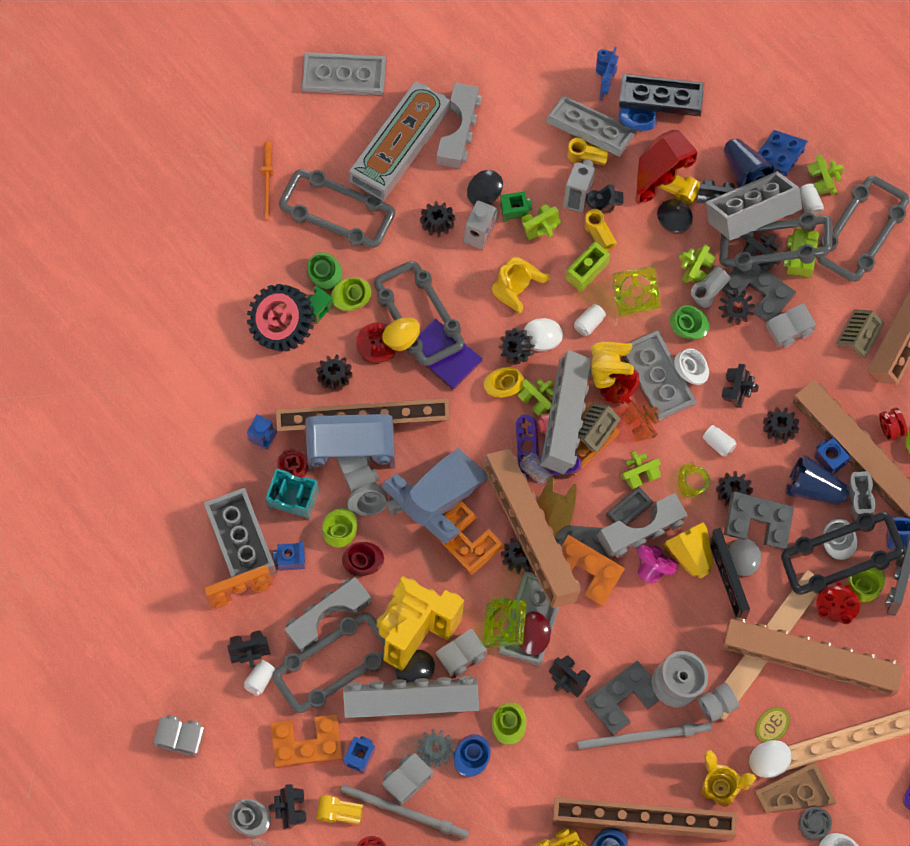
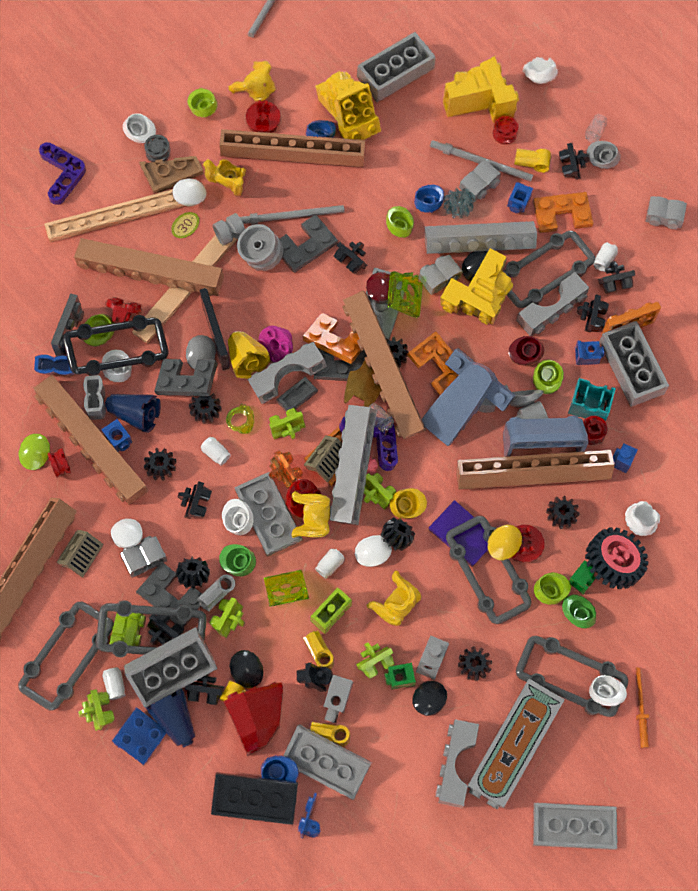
camera: 175 degrees right, 0 degrees up
(247, 364) = (642, 518): none -> white hair
(284, 601) = (596, 306): none -> black hips
(302, 187) = (607, 691): none -> white hat
(811, 347) = (127, 533): none -> white hat

